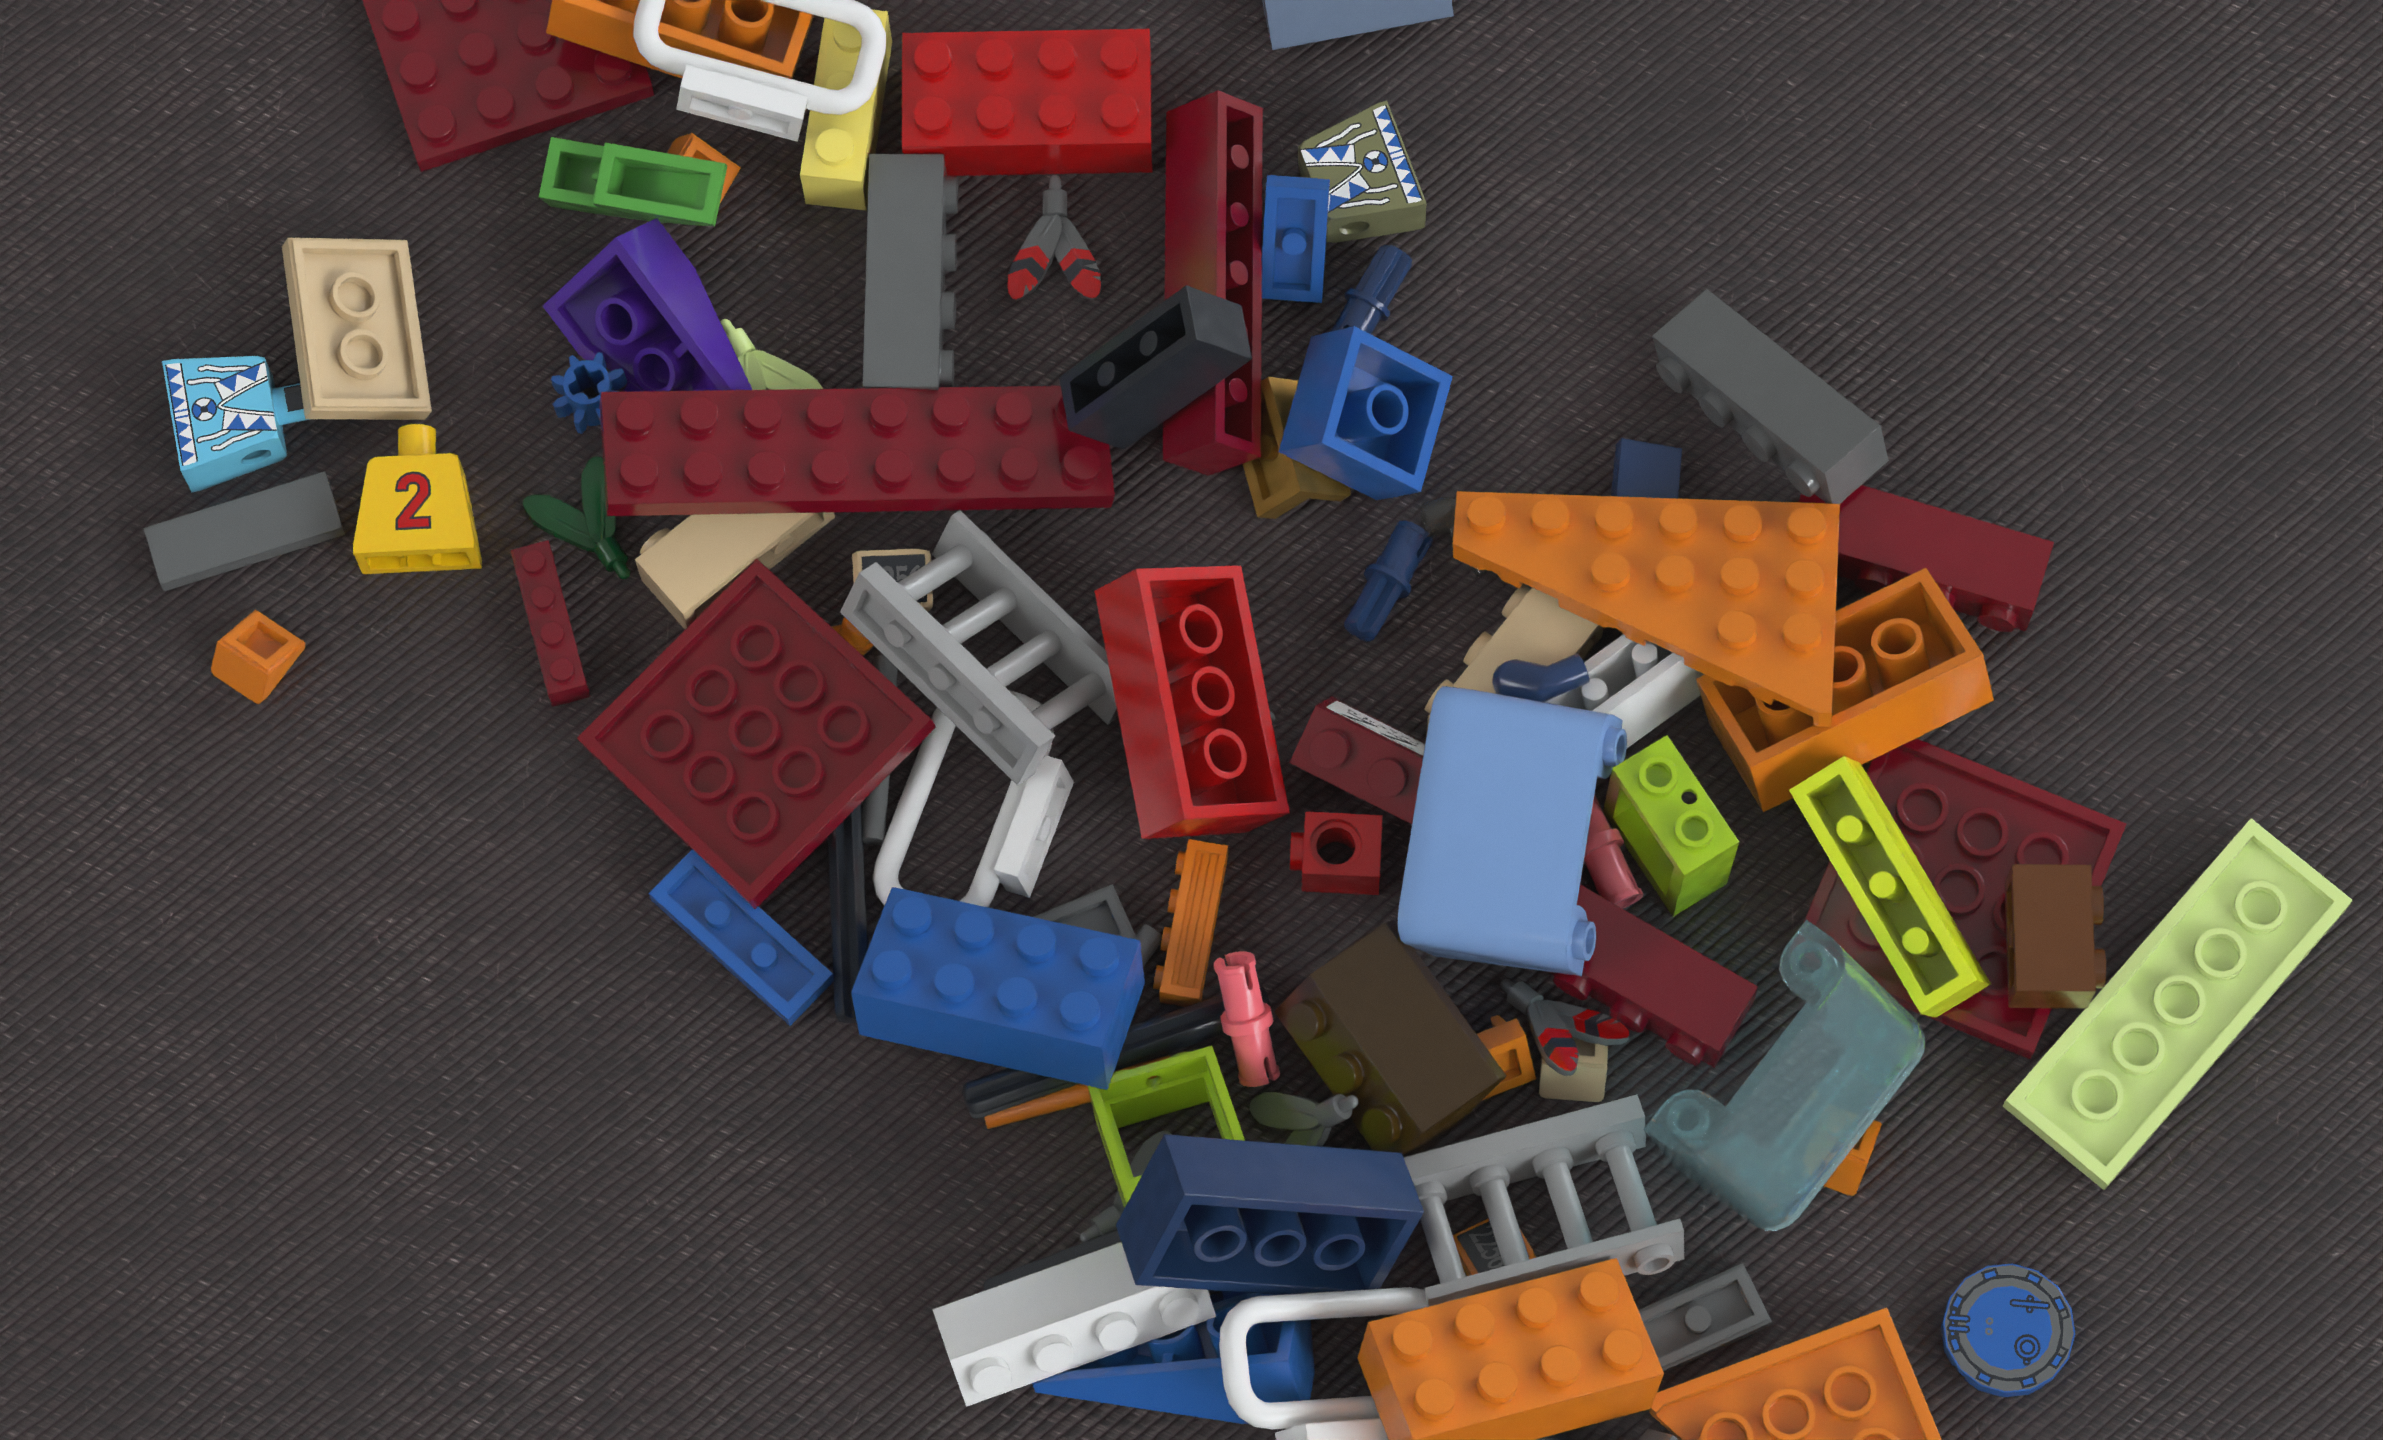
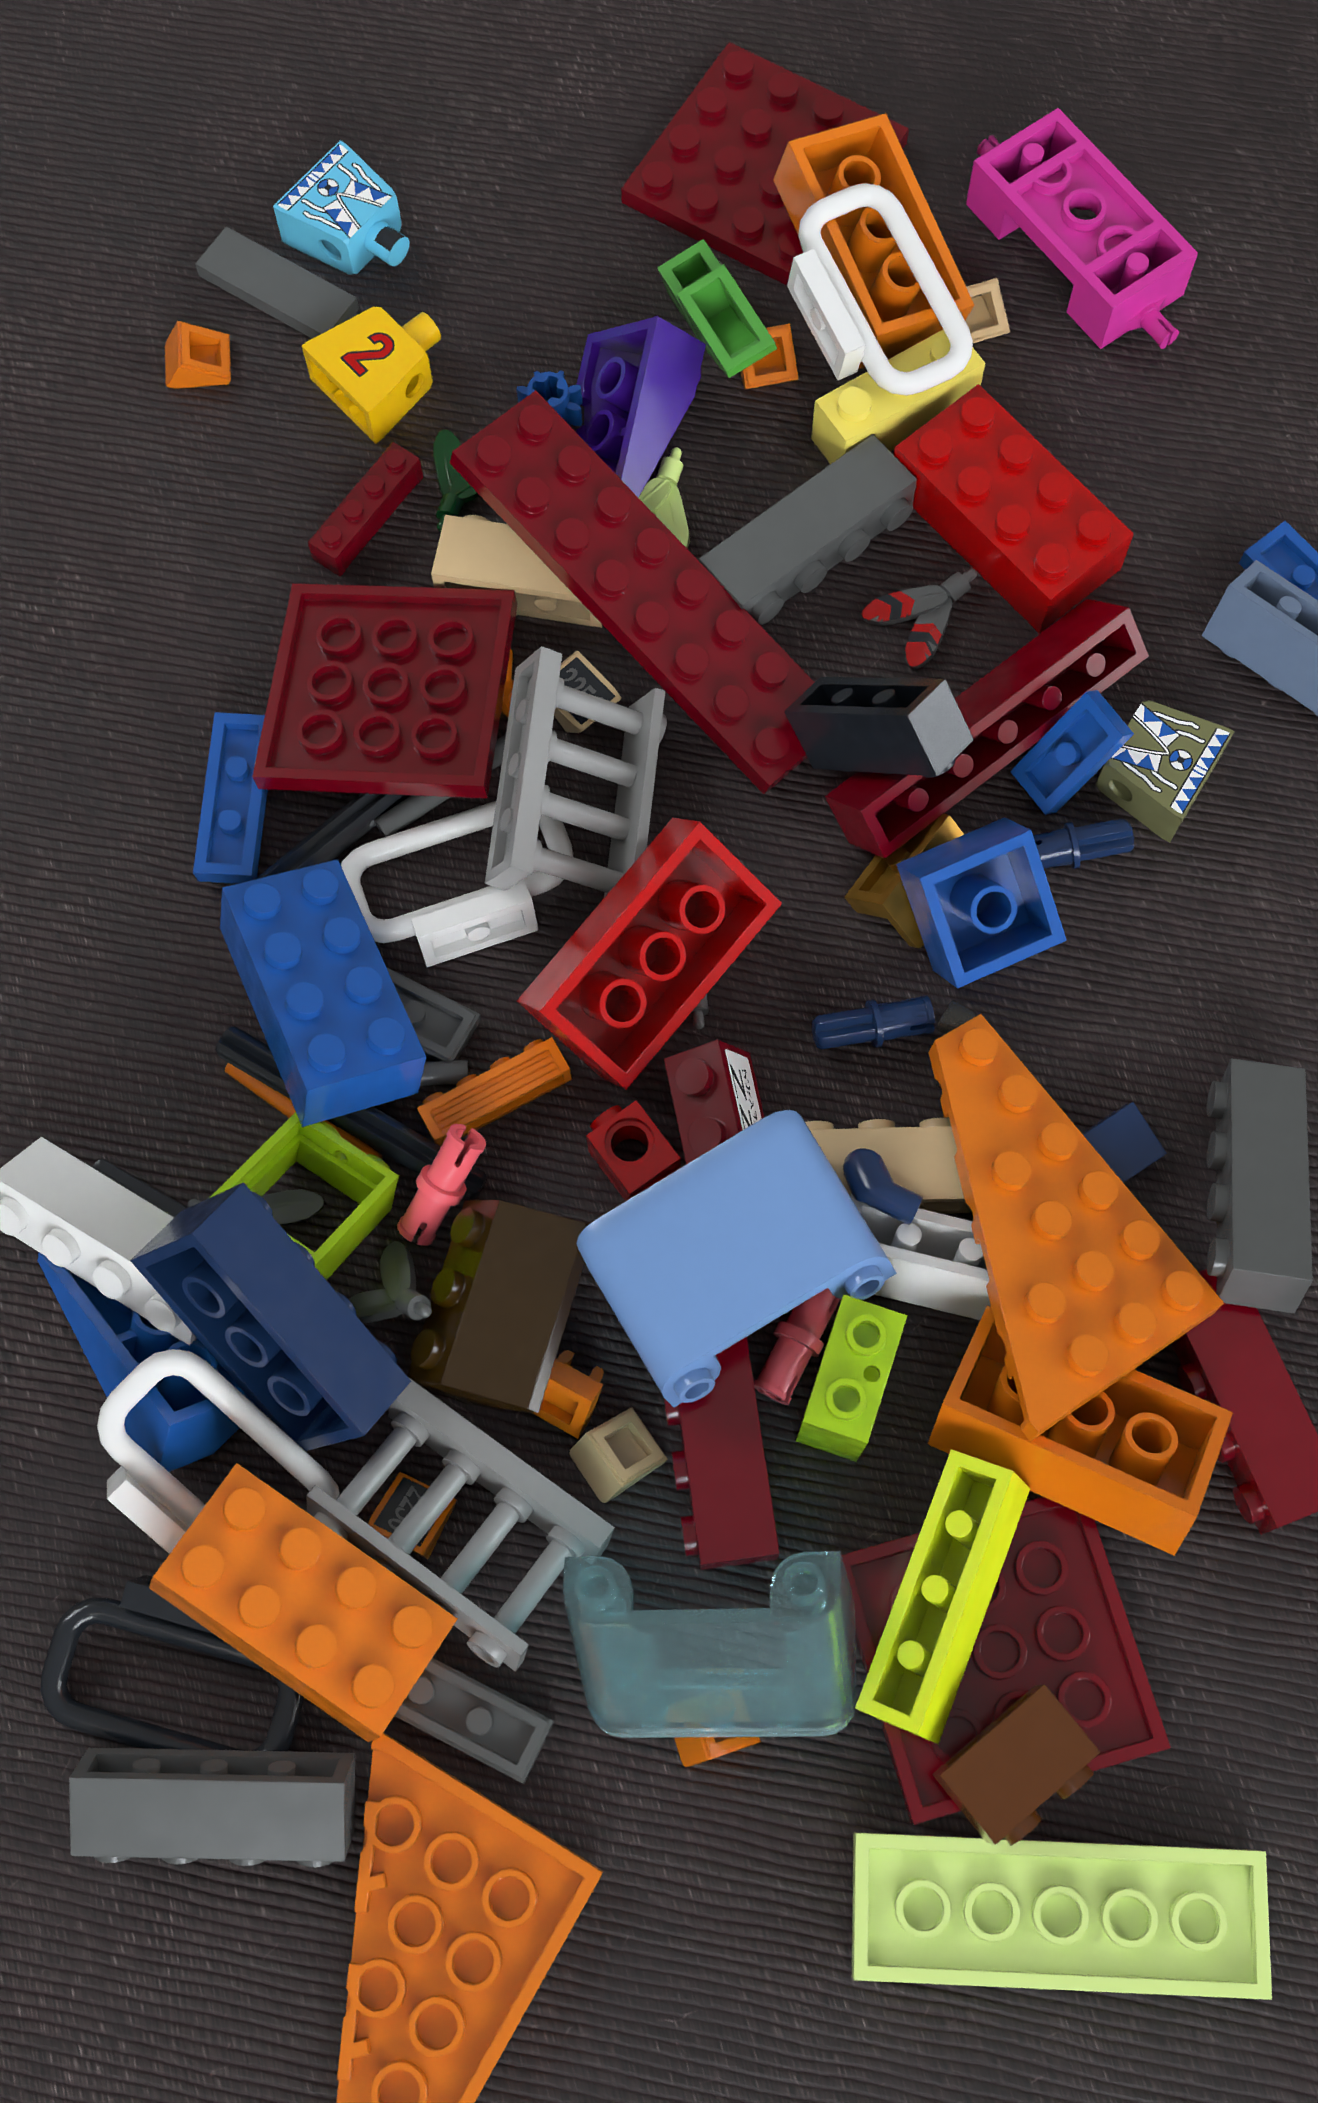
camera: 50 degrees right, 0 degrees up
(356, 329) = (468, 237): tan tile -> none
(1557, 1023) = (633, 1416): piece -> none
(2008, 1330) = (668, 1990): tile -> none

